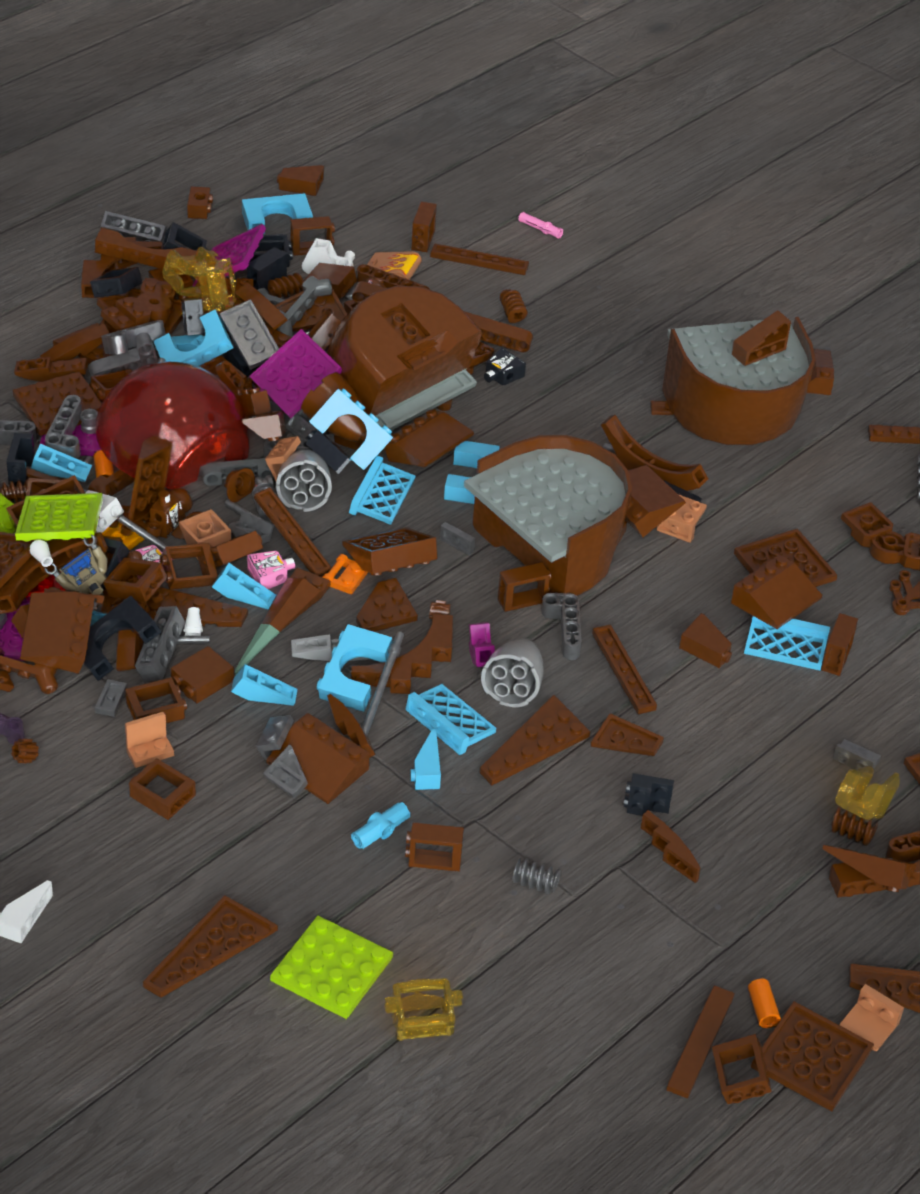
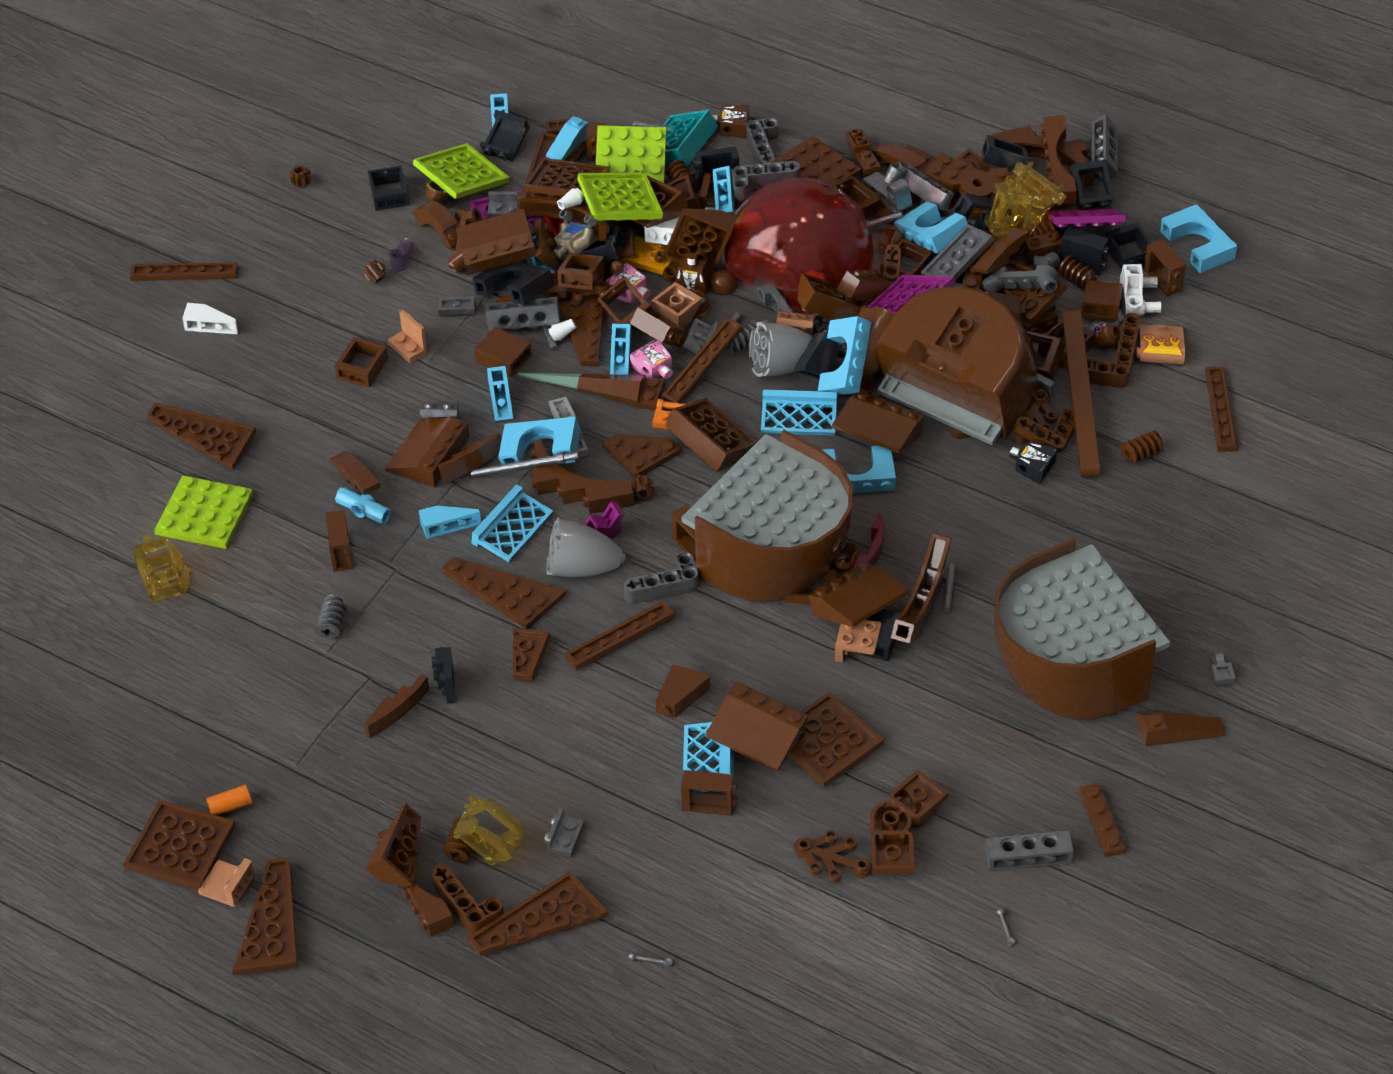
camera: 80 degrees right, 5 degrees up
(141, 532) = (659, 267): flat silver bar -> none
(153, 690) = (450, 321): reddish brown window -> none
(199, 202) = (1182, 179): reddish brown brick -> none
(239, 484) = (752, 309): reddish brown piece -> none
(287, 773) = (402, 432): flat silver wing -> none
(301, 179) = (1272, 242): reddish brown slope -> none
(326, 823) = (355, 472): none -> reddish brown slope
(424, 226) = (1233, 336): reddish brown window -> none
(545, 227) = (1309, 447): bright pink pin -> none
(700, 1042) = (181, 765): reddish brown tile -> none
(735, 1051) = (144, 791): reddish brown window -> none
(763, 339) = (1090, 615): reddish brown wedge -> none

